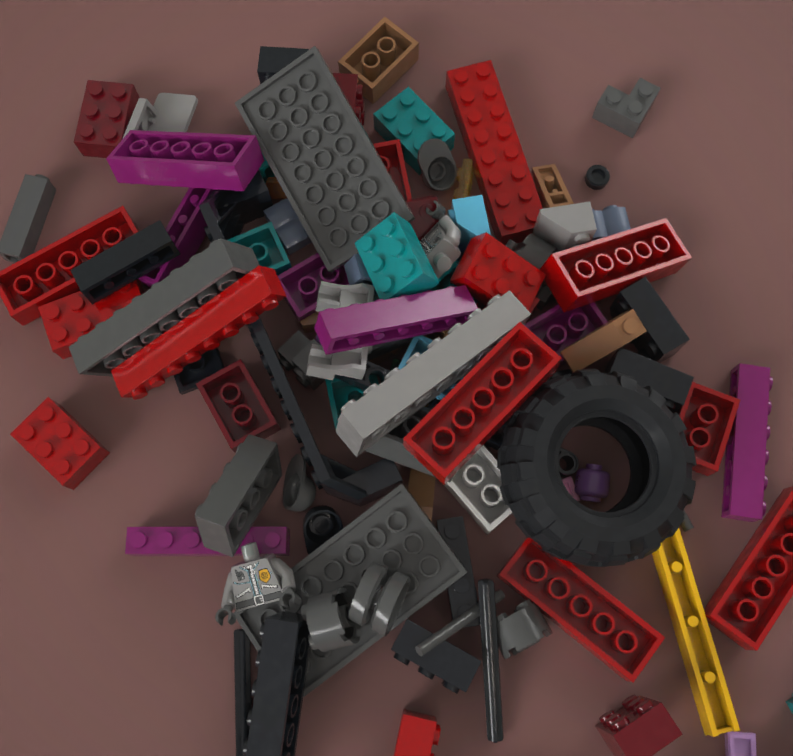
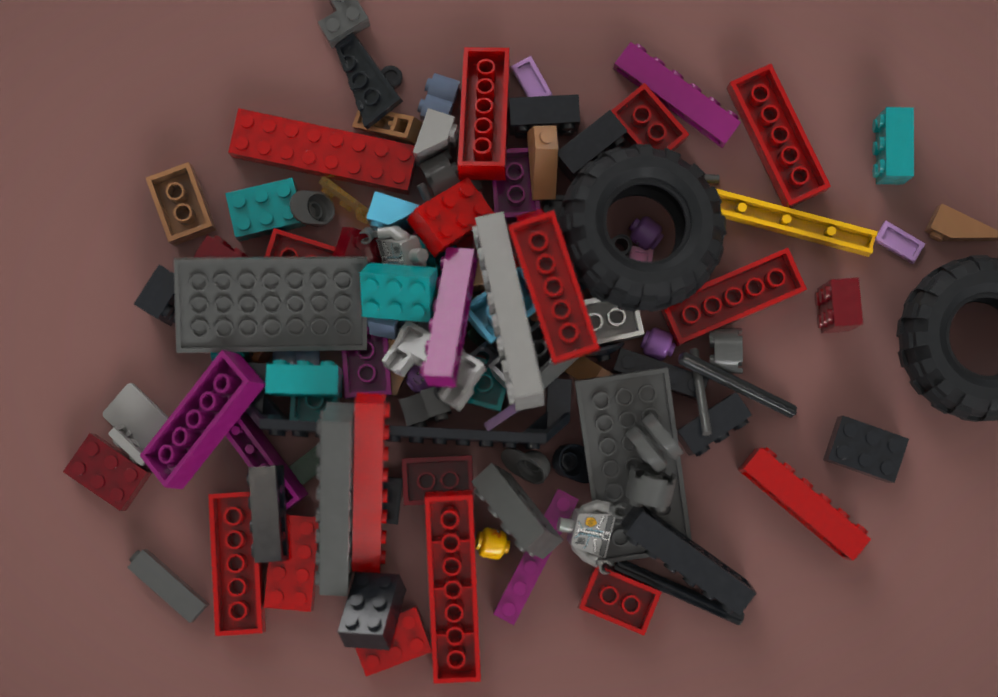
camera: 65 degrees left, 10 degrees up
(75, 405) = (372, 610): none -> black brick
(135, 471) = (452, 586): none -> red brick
(198, 489) = (492, 543): none -> yellow head
(201, 653) = (619, 600): none -> red brick
(268, 225) = (304, 379): none -> teal brick
(329, 435) = (500, 417): none -> lavender tile
(448, 501) = (605, 351): none -> black dish
(487, 554) = (657, 344): none -> medium lavender head
(580, 156) = (370, 87): none -> black wing
(676, 294) = (530, 78): none -> lavender tile

